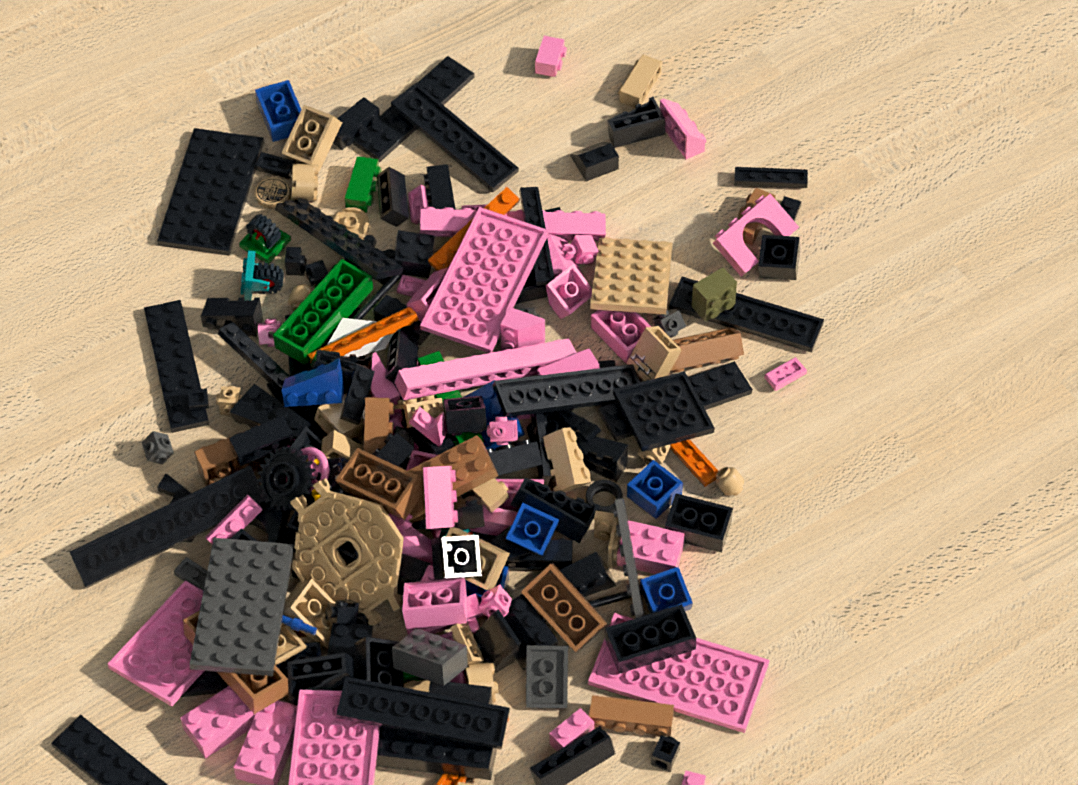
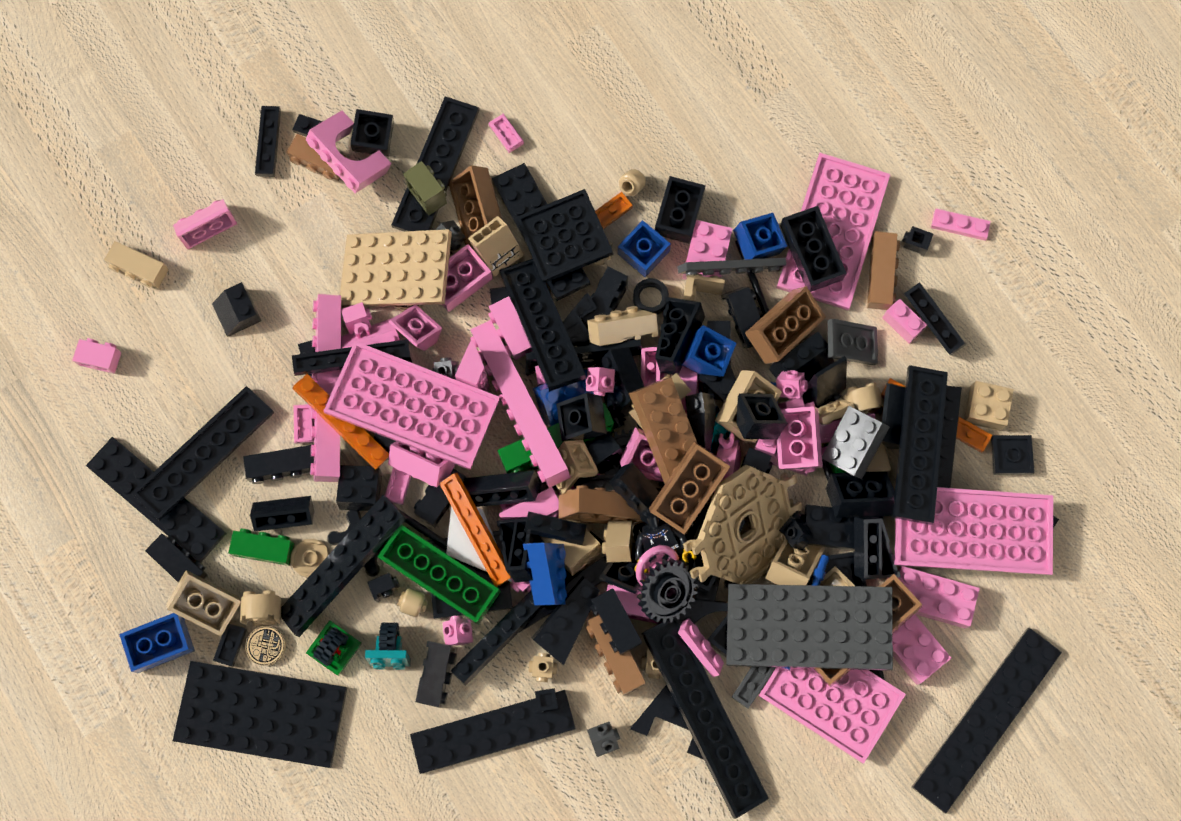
camera: 90 degrees left, 20 degrees up
(295, 261) = (363, 612): black brick -> none
(417, 201) = (290, 487): bright pink plate -> none
(432, 428) = (598, 452): bright pink slope -> none
(440, 497) = (703, 428): bright pink slope -> none
(637, 125) = (196, 264): black wedge -> none

